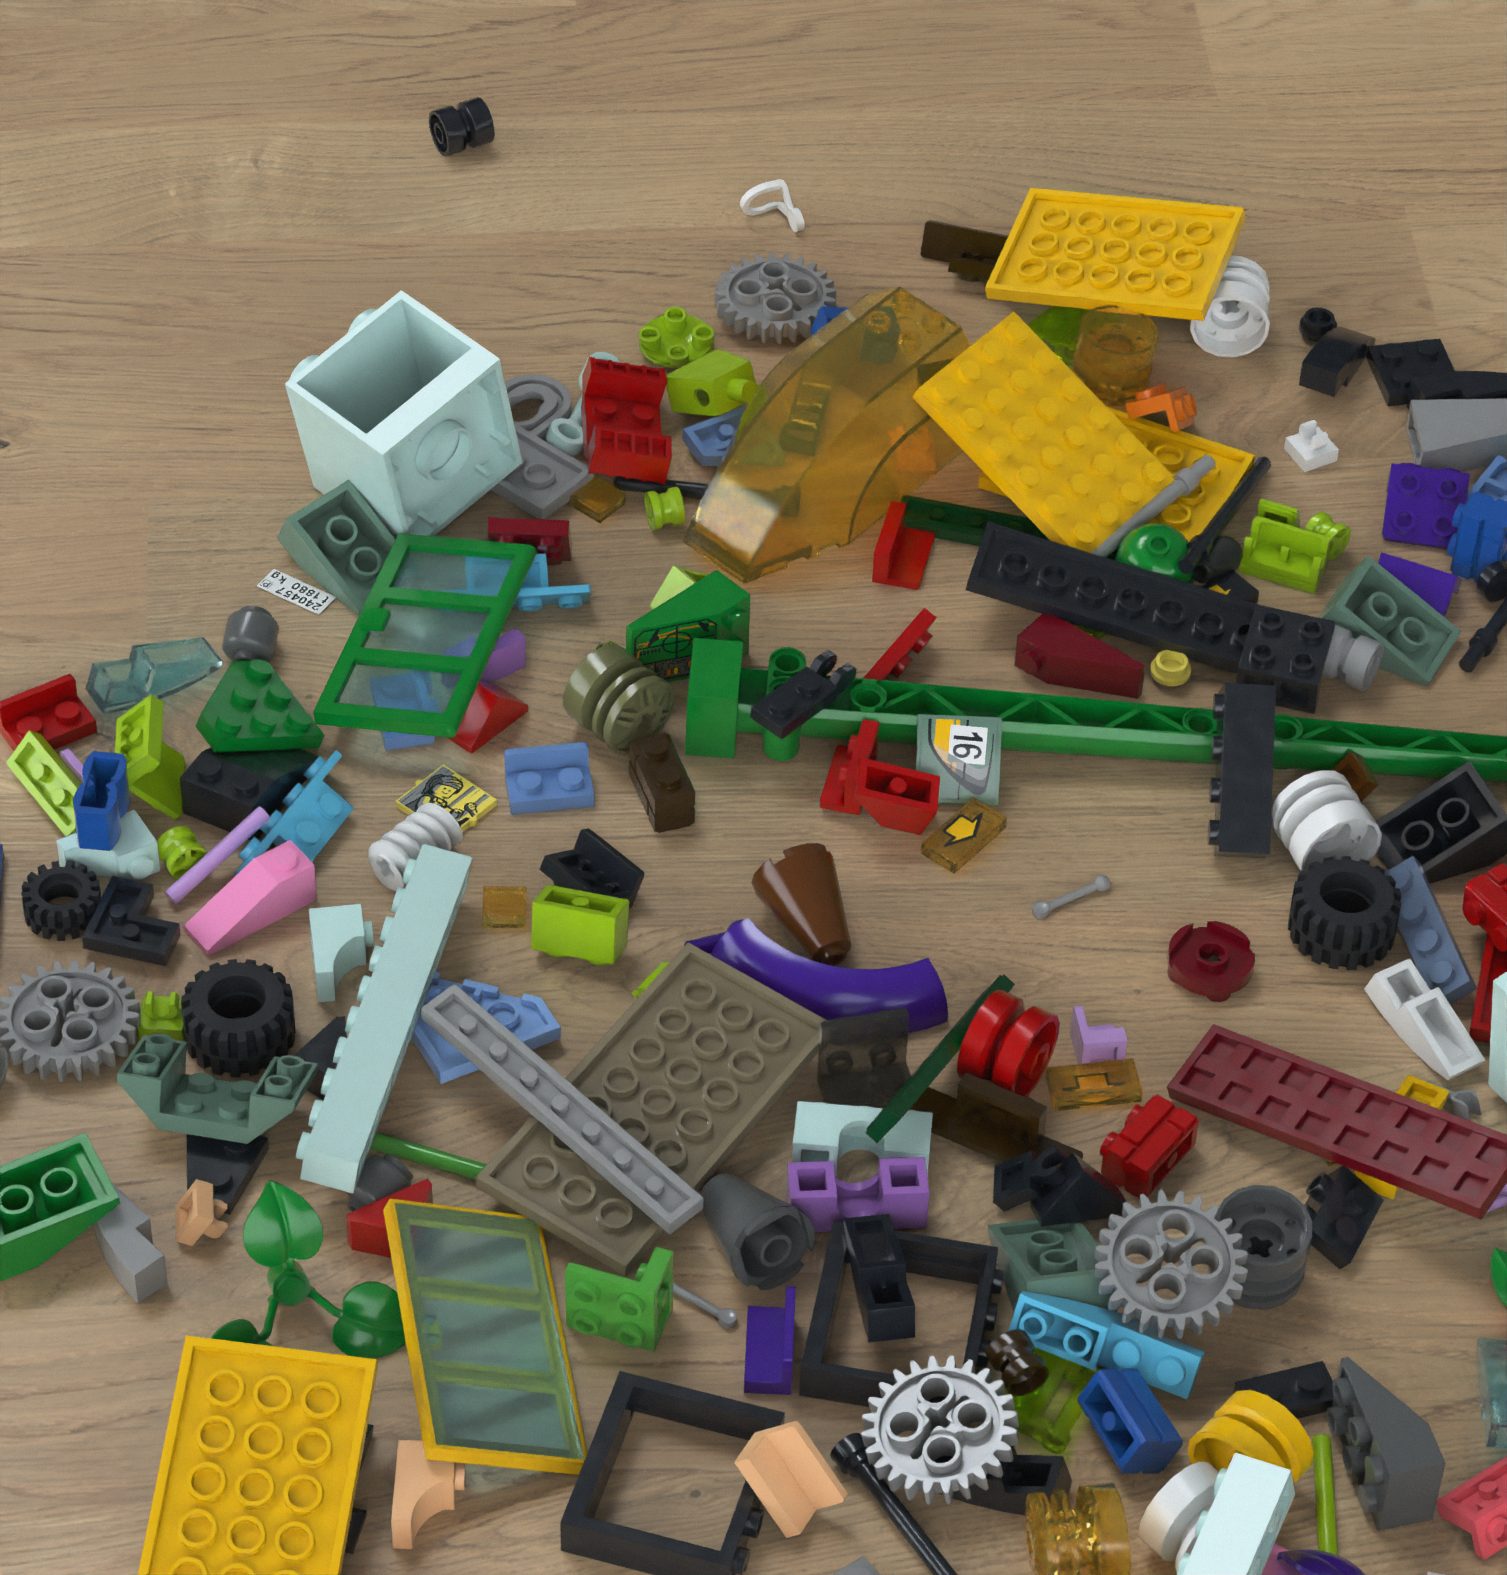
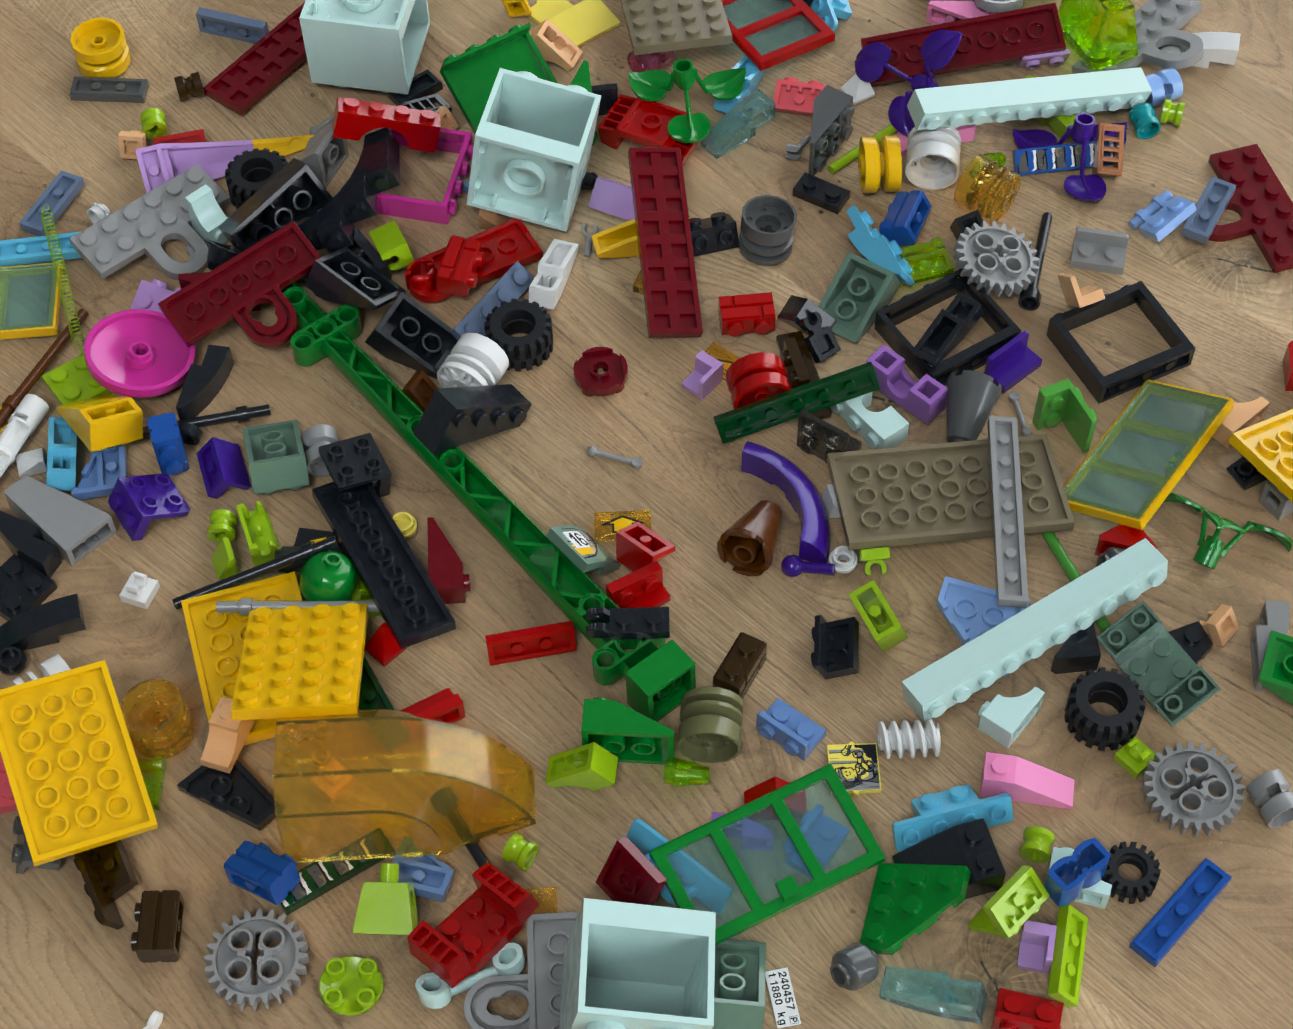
camera: 130 degrees left, 10 degrees up
(124, 930) = (1111, 819): black plate -> none
(217, 855) = (1019, 821): lavender bar -> none
(504, 907) = (890, 677): clear yellow tile -> none
(885, 260) = (158, 926): none -> dark brown brick
(1015, 1358) = (929, 261): dark brown wheel -> none
(1177, 403) = (186, 663): orange bracket -> none
(1197, 1293) = (829, 228): light grey gear -> none

